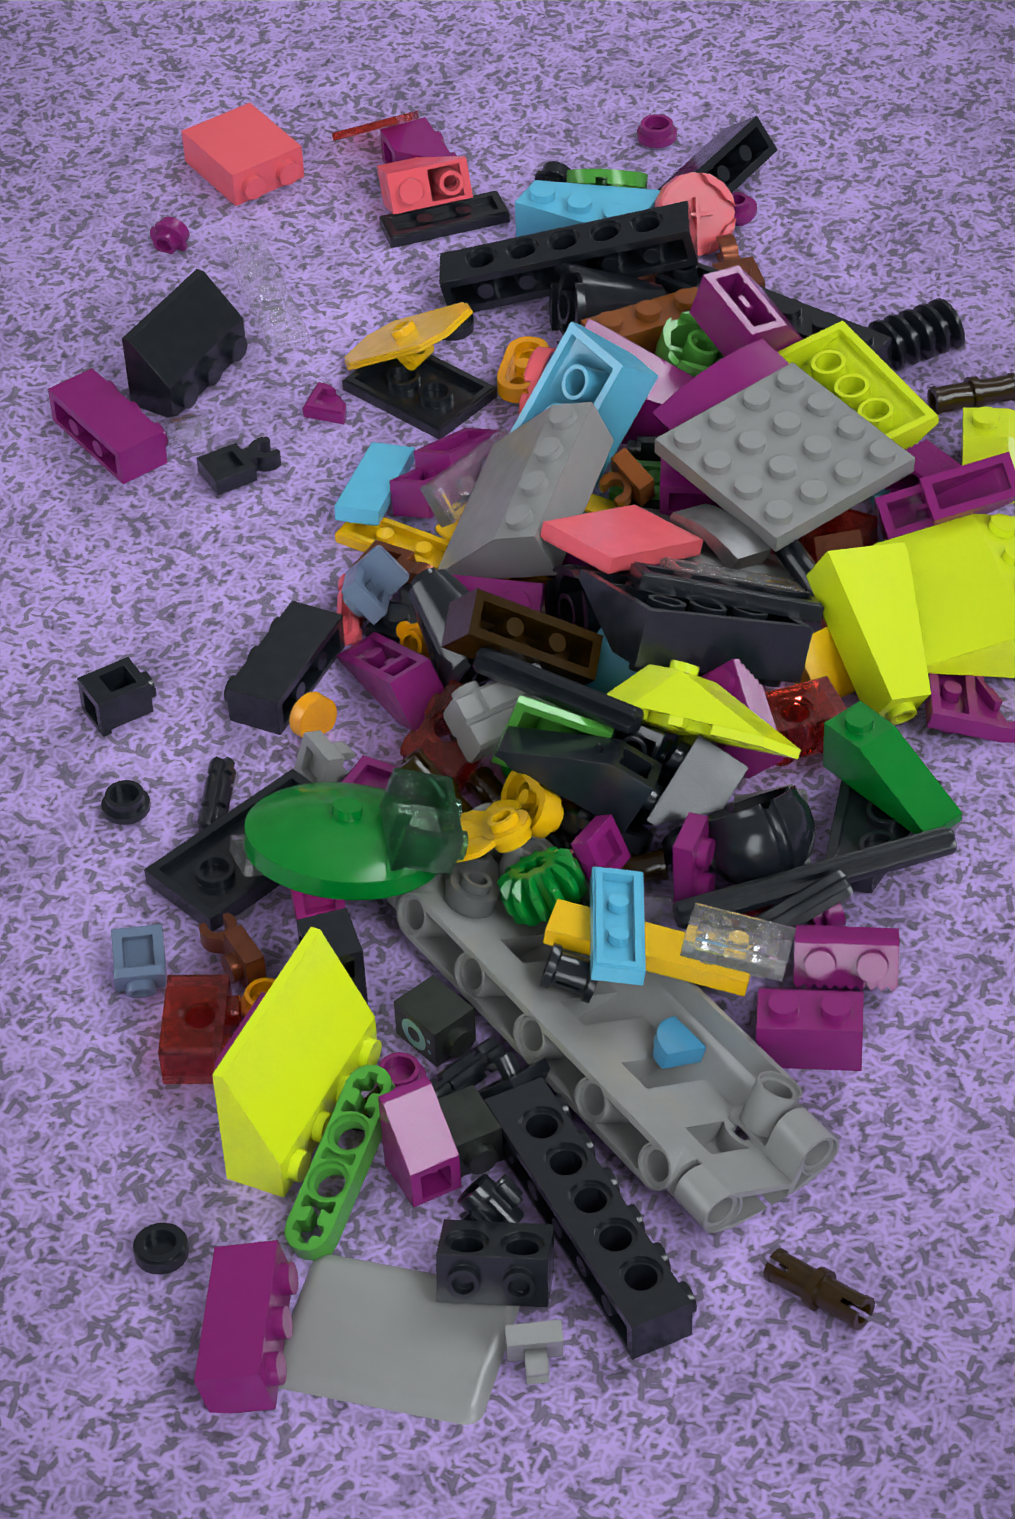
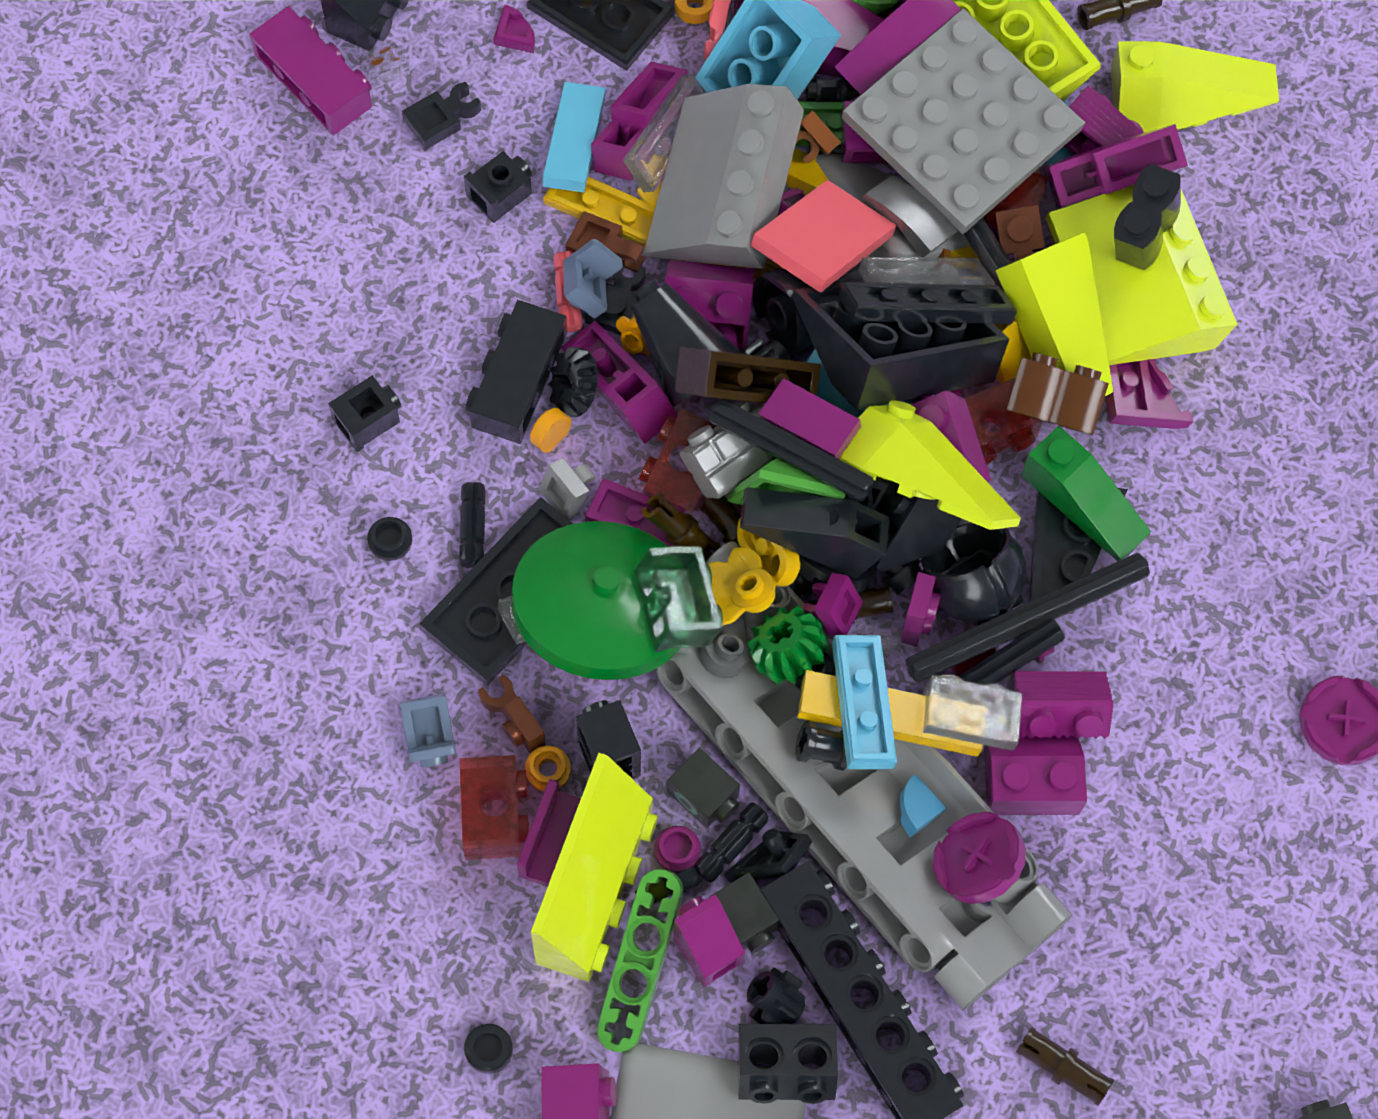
camera: 10 degrees left, 25 degrees up
(288, 520) = (499, 196): none -> black brick
(344, 672) = (579, 368): none -> black gear
(585, 665) = (810, 418): none -> magenta tile
(733, 1076) = (979, 858): none -> magenta tile
(853, 672) = (1058, 394): none -> reddish brown brick
(973, 530) = (1146, 218): none -> black brick

